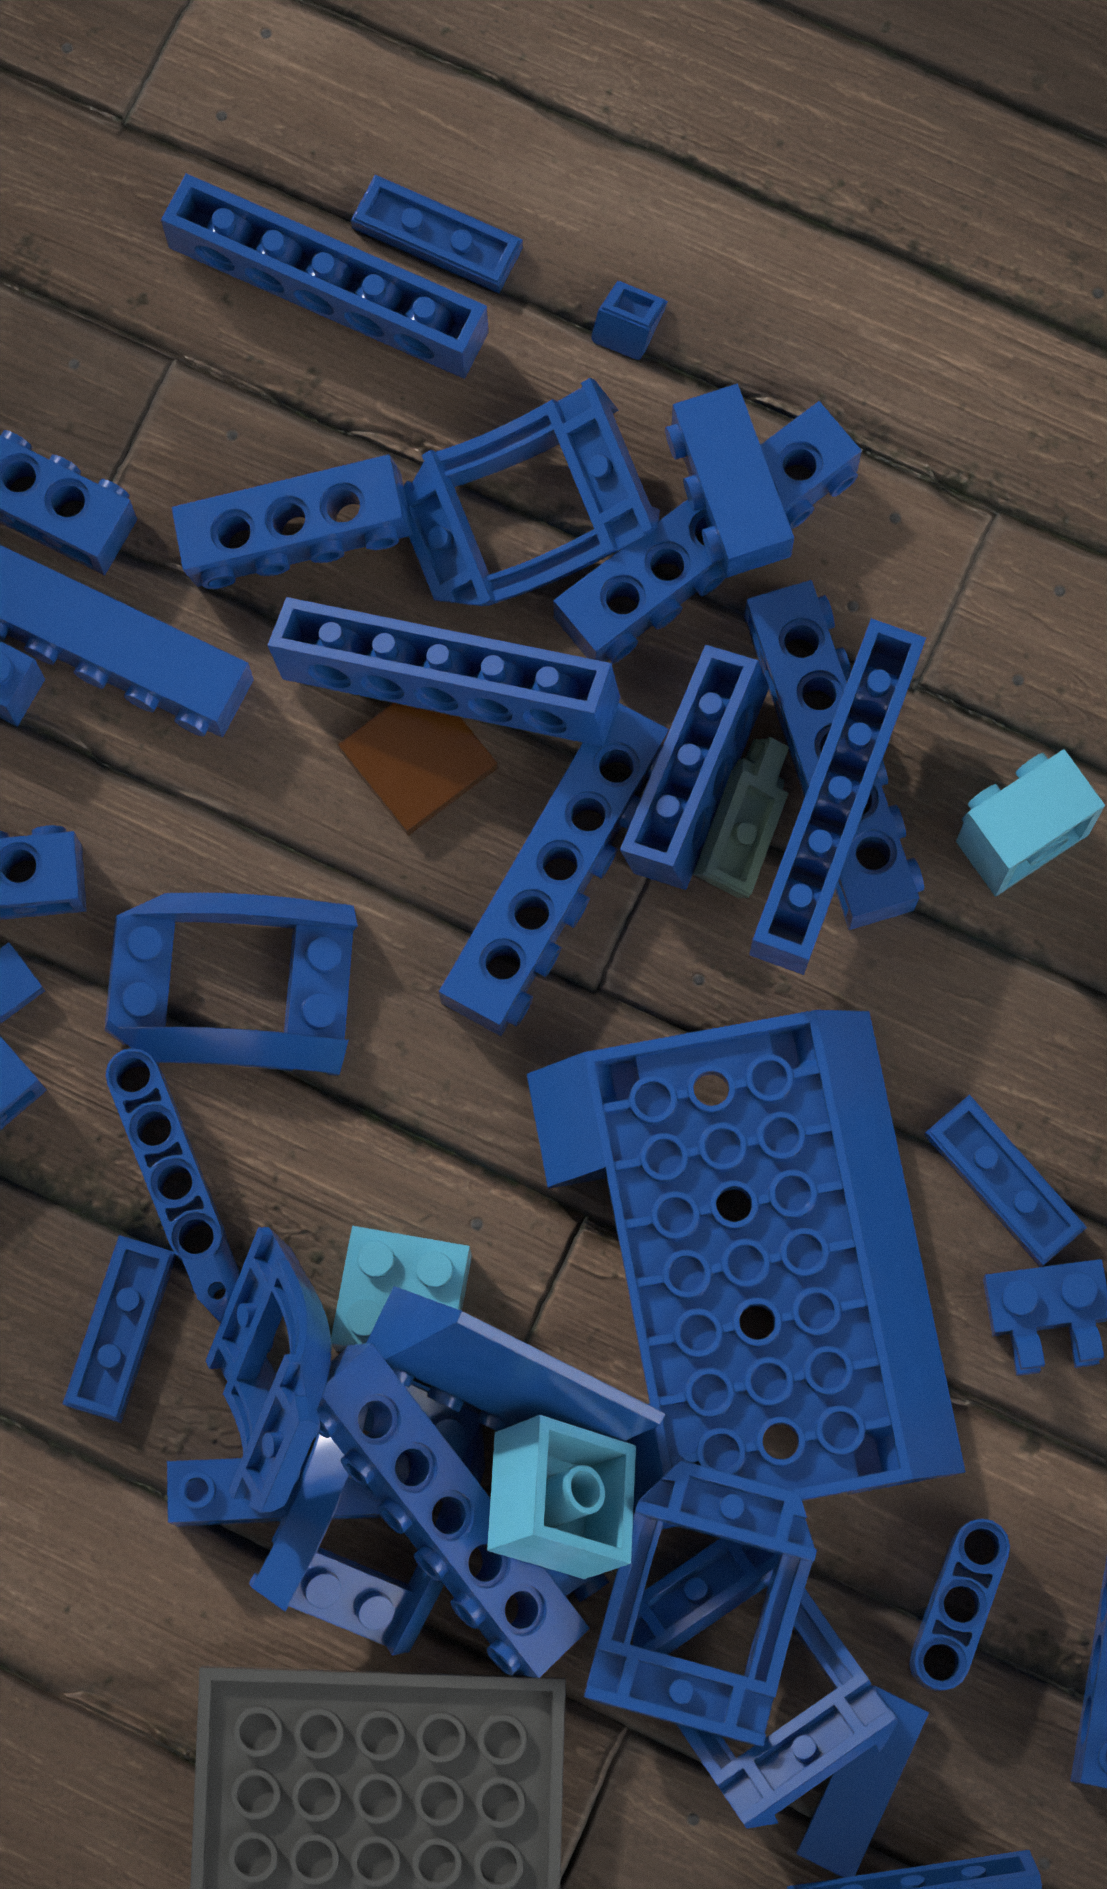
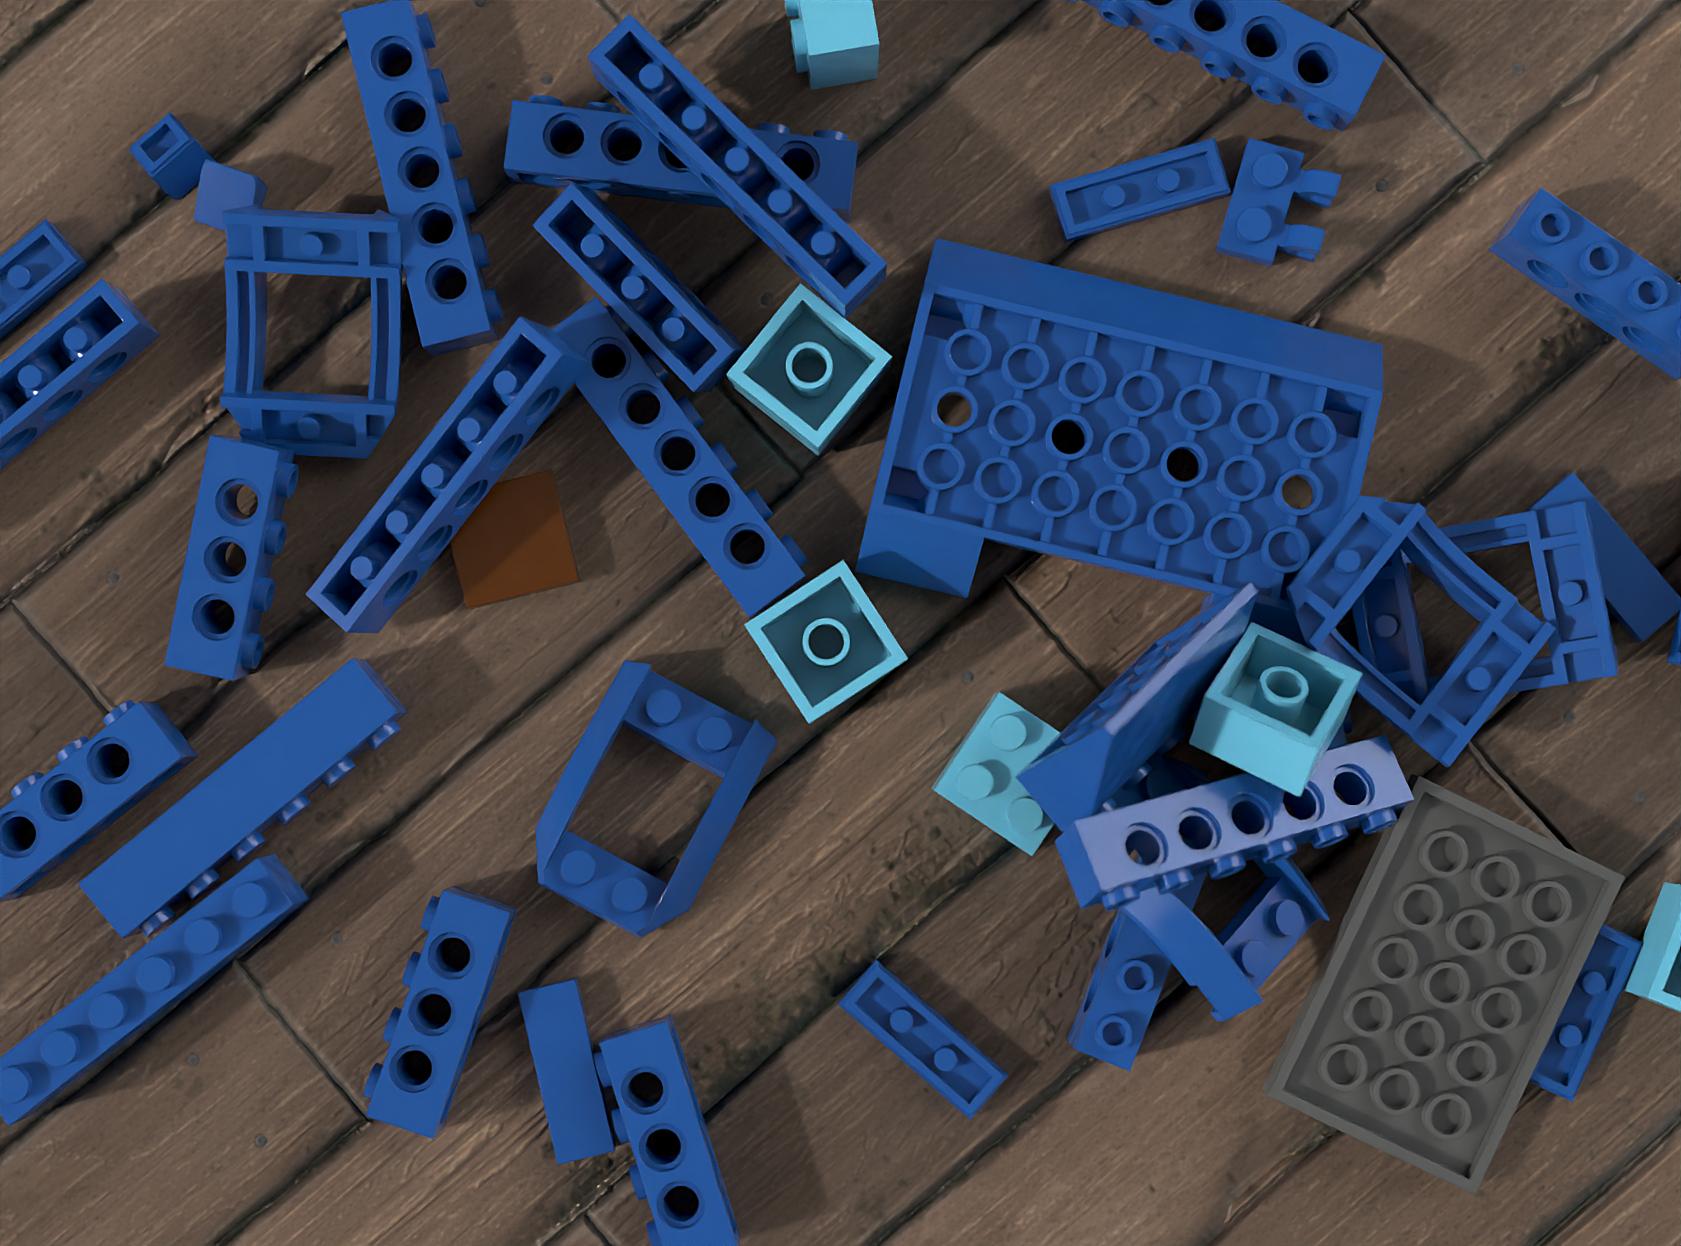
camera: 70 degrees left, 10 degrees up
(216, 1266) = (908, 941): blue piece -> none
(272, 1410) = (1099, 939): blue wedge -> none
(446, 1072) = (826, 642): none -> medium azure brick
(617, 376) = (225, 189): none -> blue slope
(689, 947) = (809, 369): none -> medium azure brick
(729, 481) = (384, 128): blue brick -> none
(745, 820) = (708, 266): sand green hinge -> none
(981, 1583) = (1523, 407): blue beam -> none

